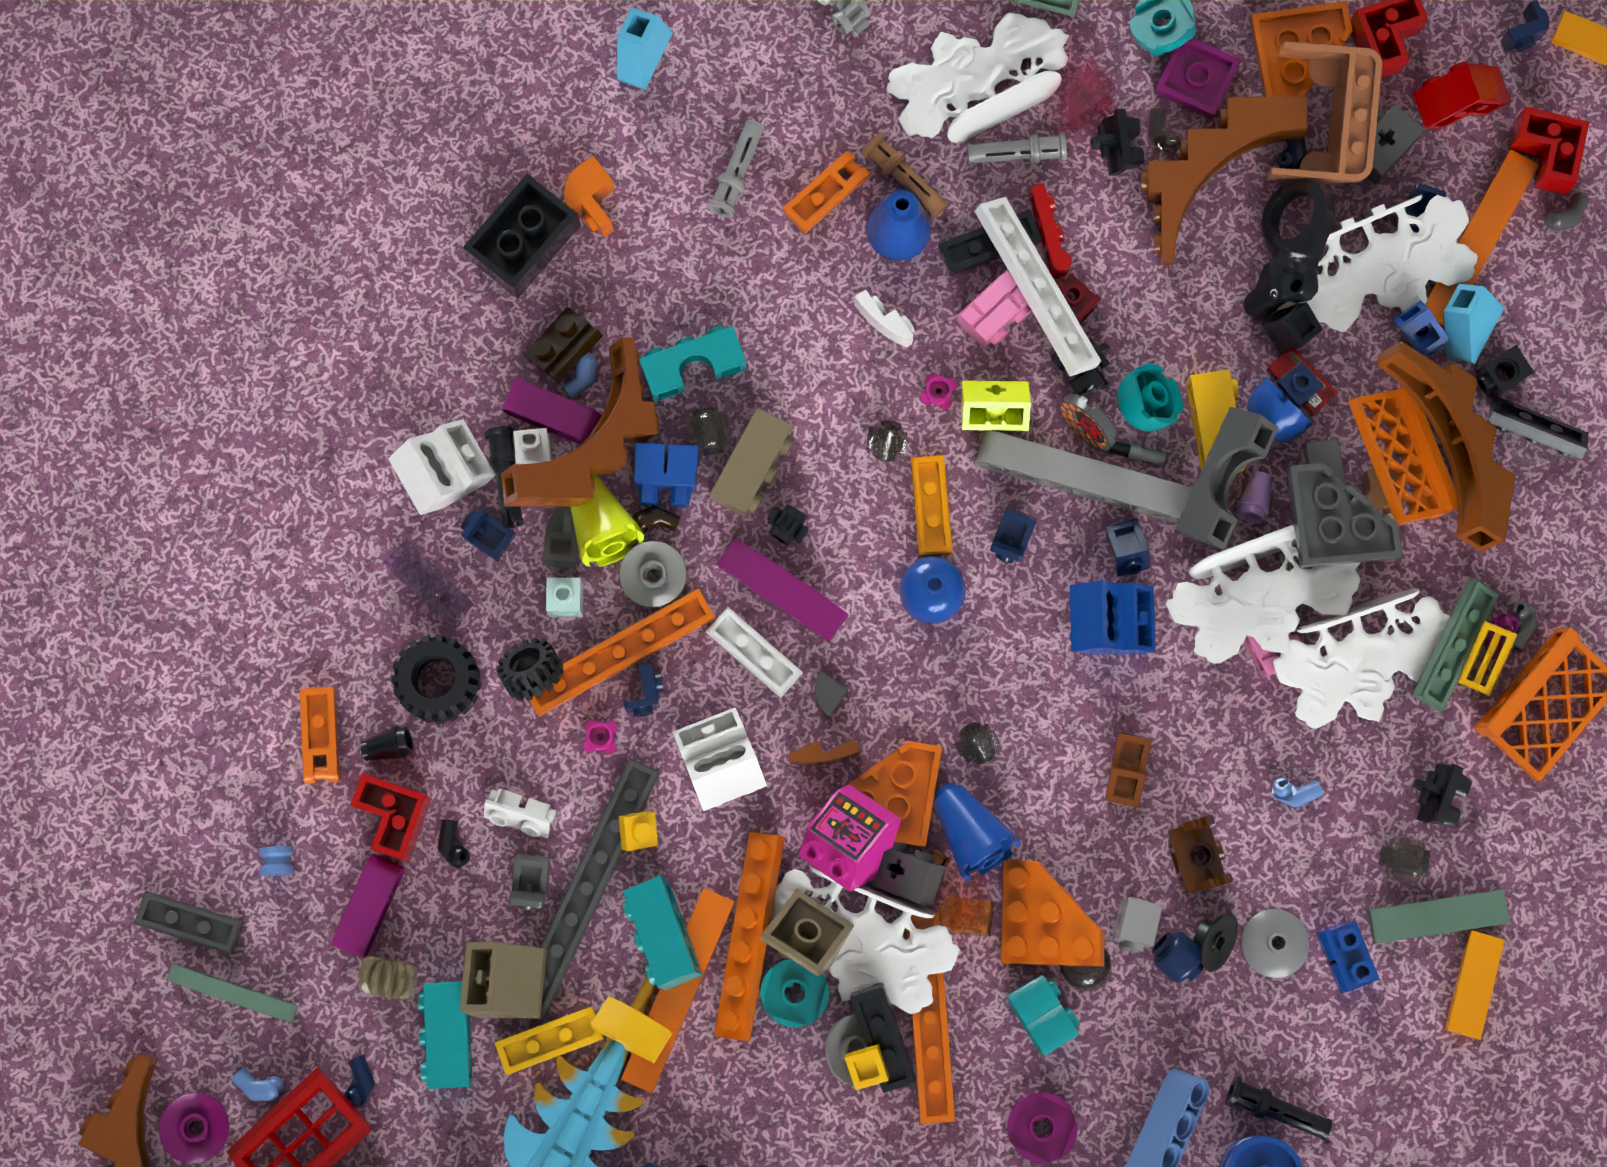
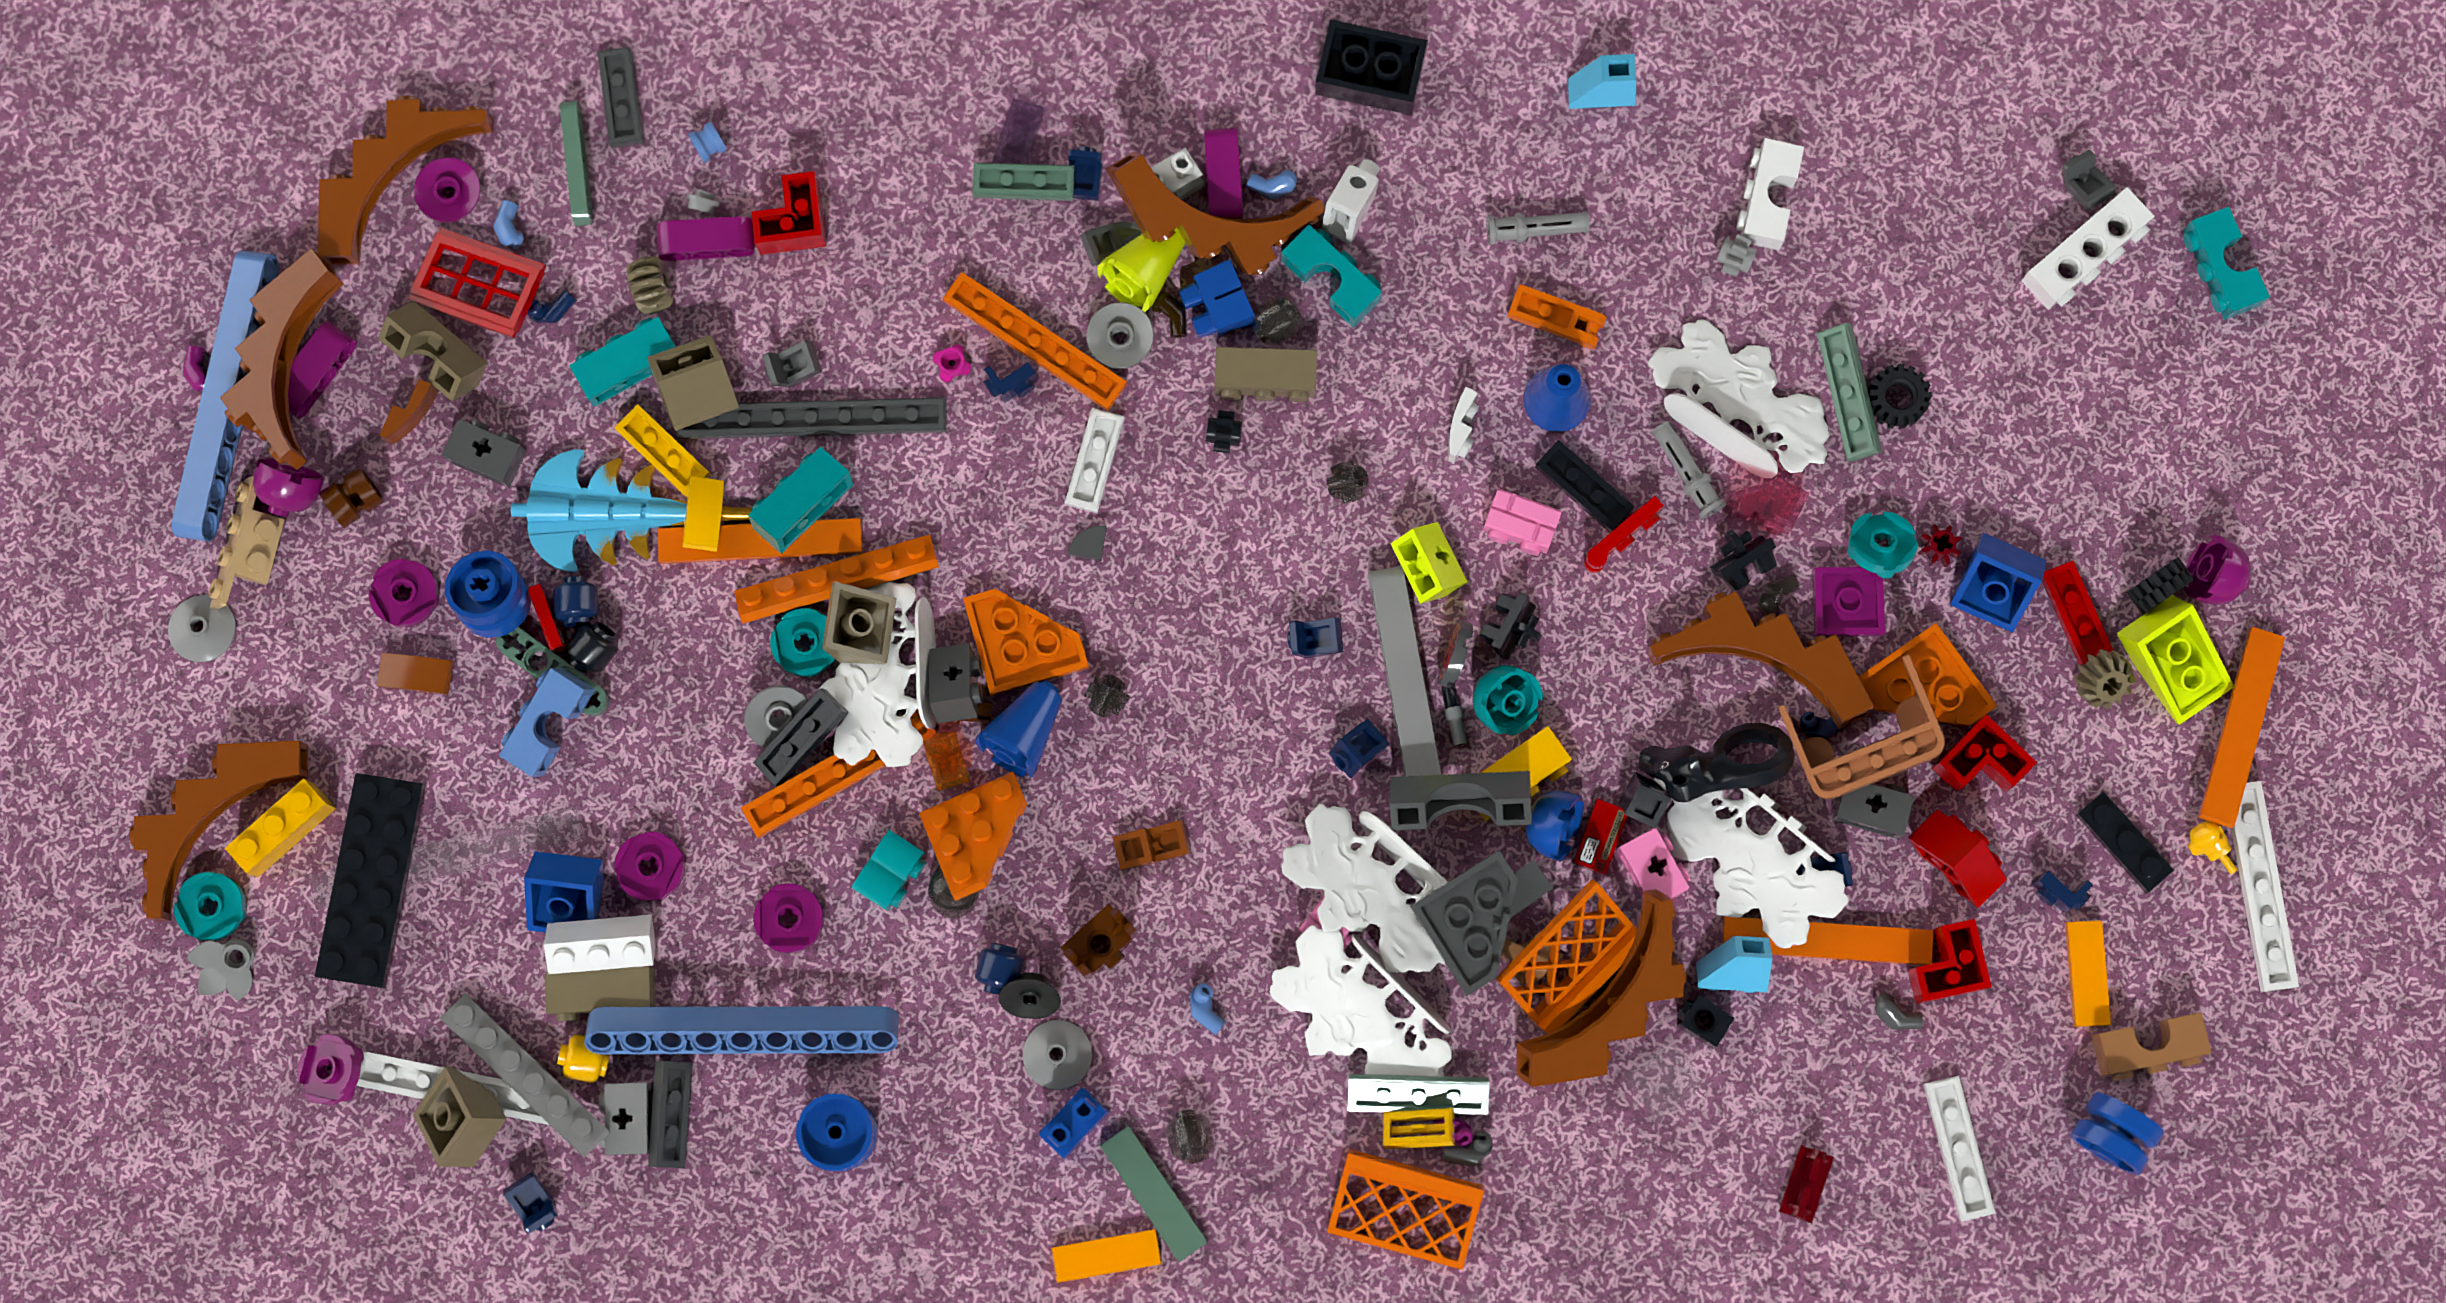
camera: 70 degrees right, 0 degrees up
(319, 734) = (835, 122): orange plate -> none
(331, 892) = (702, 201): none -> light grey plate
(390, 744) = (856, 186): black cone -> none
(416, 658) = (926, 169): black tyre -> none
(441, 466) = (1125, 104): white piece -> none
(449, 846) = (791, 283): black arm -> none
(467, 590) = (1023, 181): none -> sand green tile
(500, 460) = (1154, 154): black pin -> none
(530, 669) = (978, 269): black tyre -> none
(533, 820) = (847, 313): white hinge -> none
(563, 345) = (1290, 154): dark brown plate -> none
(564, 597) = (1060, 269): light aqua brick -> none
(584, 190) = (1441, 100): orange brick -> none
(635, 312) = (1351, 201): none -> white torso
(638, 831) = (882, 436): yellow plate -> none
(719, 759) = (980, 475): white piece -> none
(782, 589) = (1162, 455): magenta slope -> none
(813, 754) = (1027, 557): dark orange slope -> none
(849, 838) = (960, 618): dark pink piece -> none
(867, 1067) = (766, 733): yellow plate -> none
(894, 165) = (1610, 362): medium nougat pin -> none
(931, 505) = (1309, 553): light orange tile -> none
(932, 590) = (1230, 591): blue cylinder -> none
(938, 382) = (1426, 501): dark pink plate -> none
(1037, 286) = (1558, 544): white plate -> none
(1086, 301) = (1568, 599): dark red brick -> none
(1112, 618) = (1283, 764): blue piece -> none
(1136, 924) = (1007, 913): light grey brick -> none
(1255, 499) = (1463, 844): lavender cone -> none
(1259, 1103) = (903, 1106): black pin -> none
(1300, 385) = (1587, 829): dark blue bracket -> none
(1337, 359) = (1654, 846): none -> bright pink brick
(1414, 319) = (1694, 929): blue brick -> none
(1438, 794) = (1267, 1138): black hips -> none
(1538, 428) = (1666, 1076): black plate -> none

